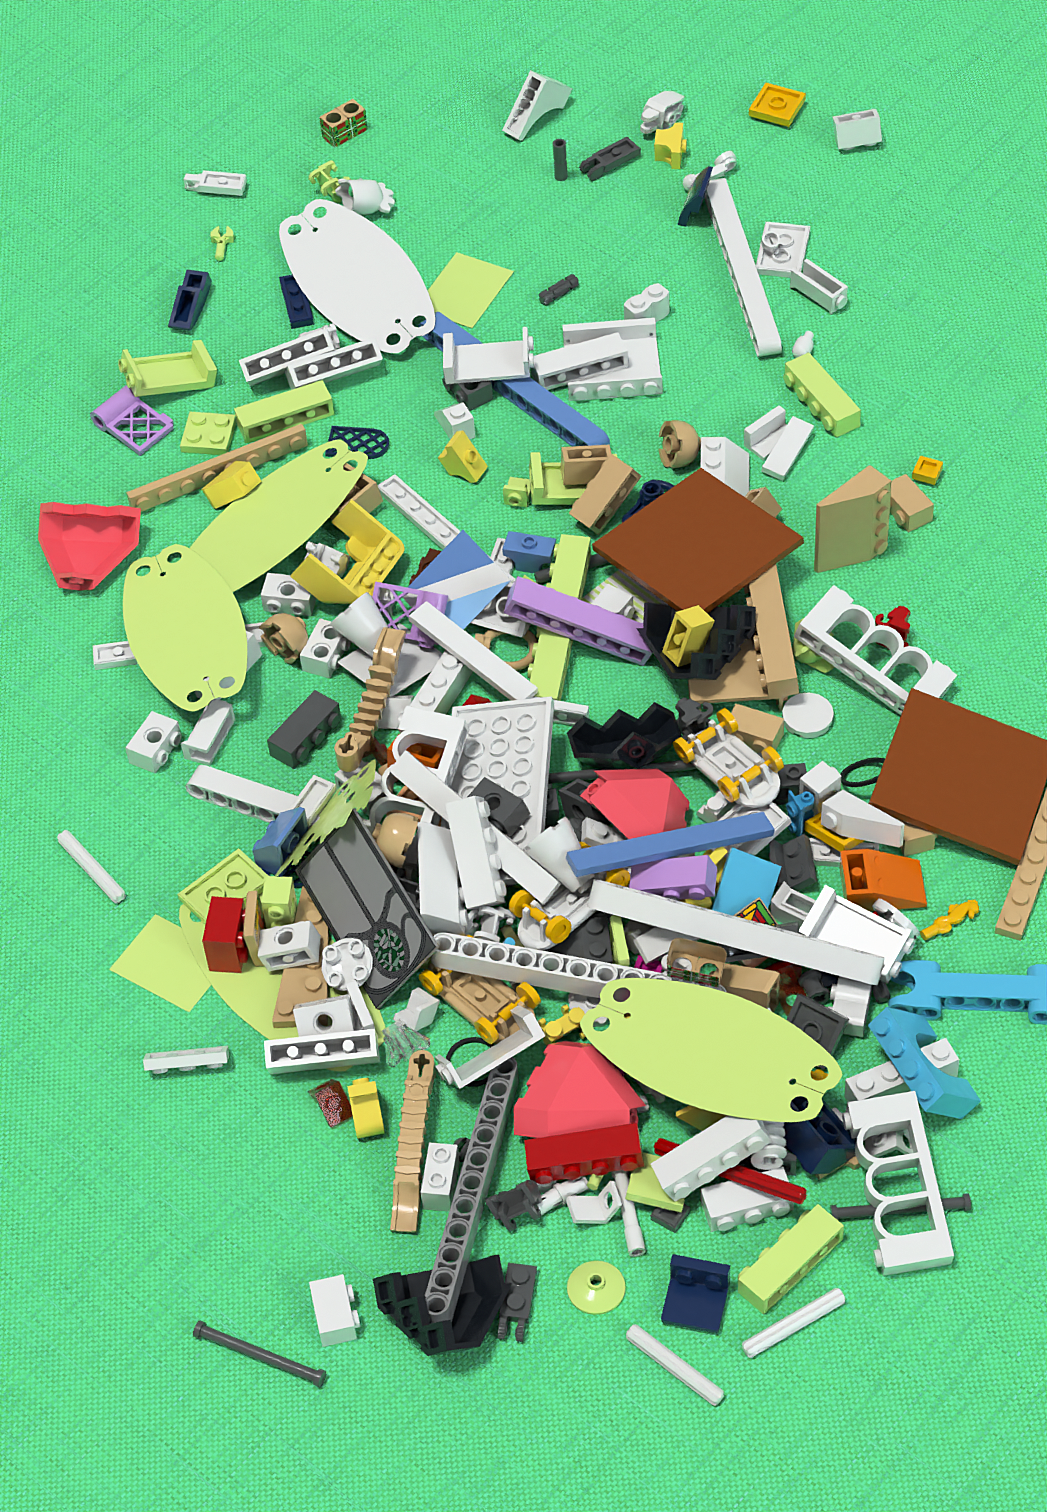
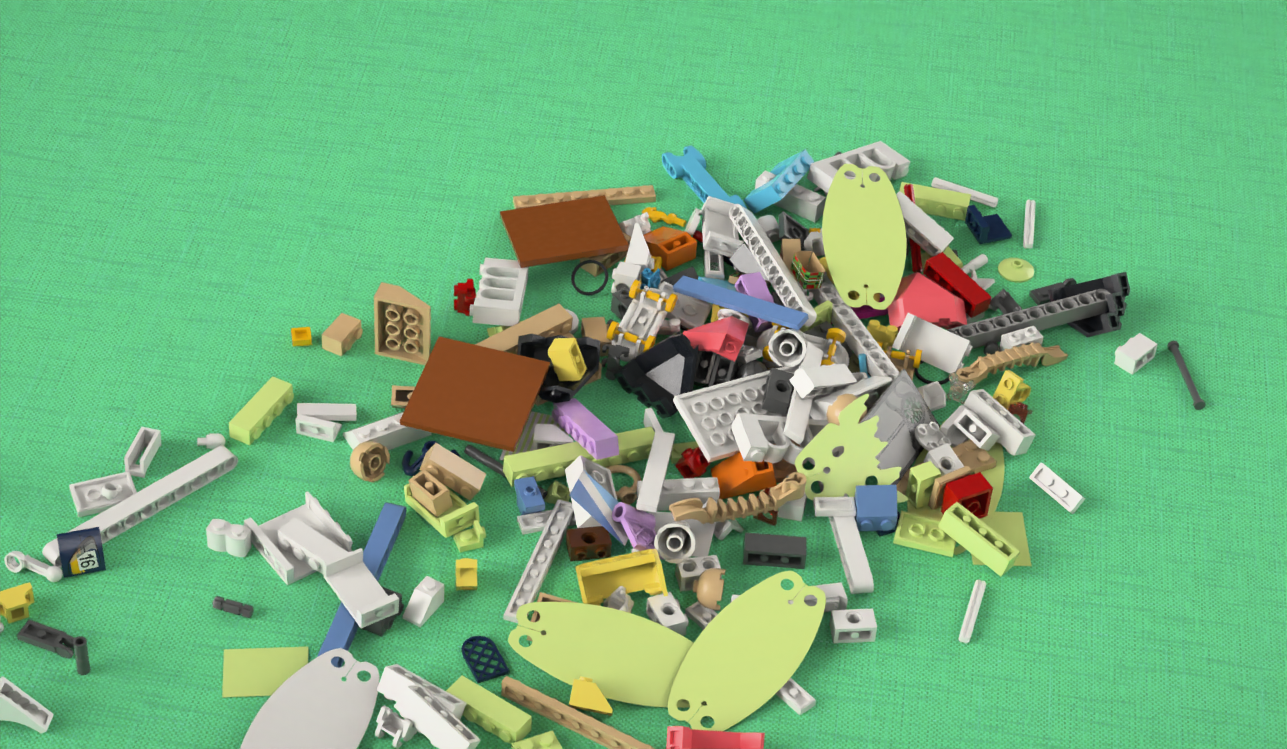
camera: 130 degrees left, 10 degrees down
(160, 910) = (979, 539): none -> yellowish green brick
(939, 865) = (628, 225): none -> white piece

